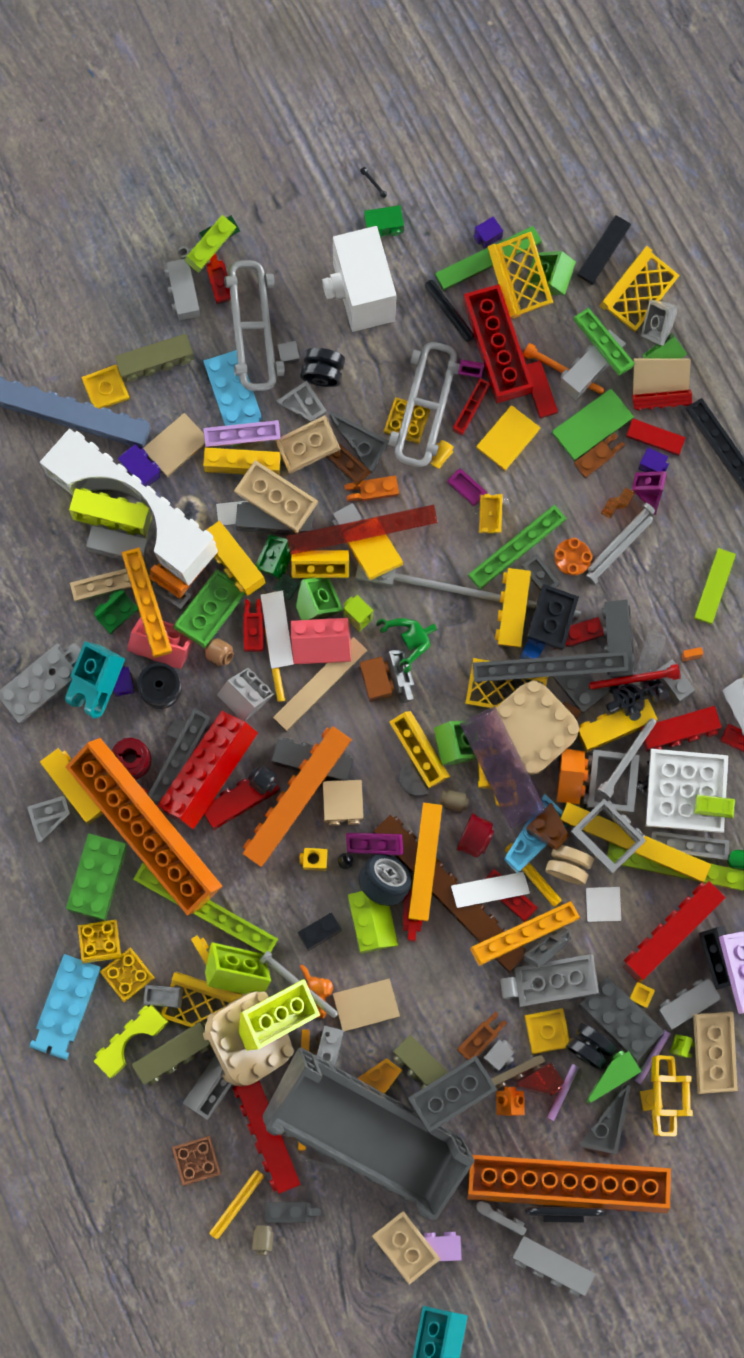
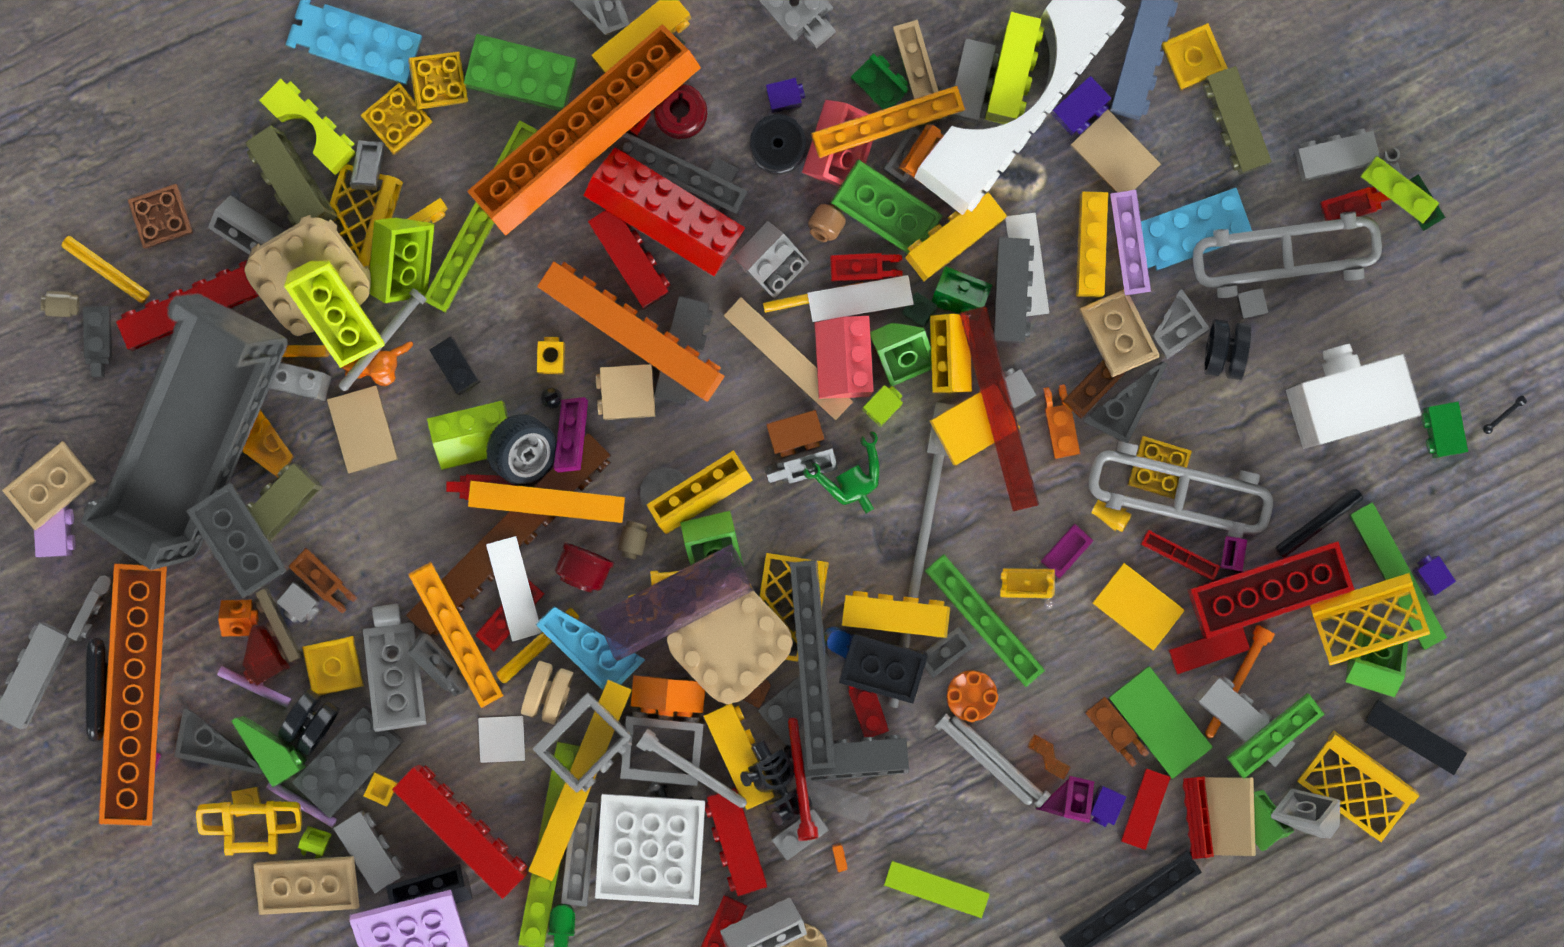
camera: 95 degrees right, 10 degrees up
(94, 678) = (783, 57): teal brick -> none
(262, 780) = (649, 284): black head -> none
(276, 496) = (1040, 290): tan tile -> none
(548, 828) = (593, 665): reddish brown wing -> none
(714, 806) = (628, 885): lime tile -> none

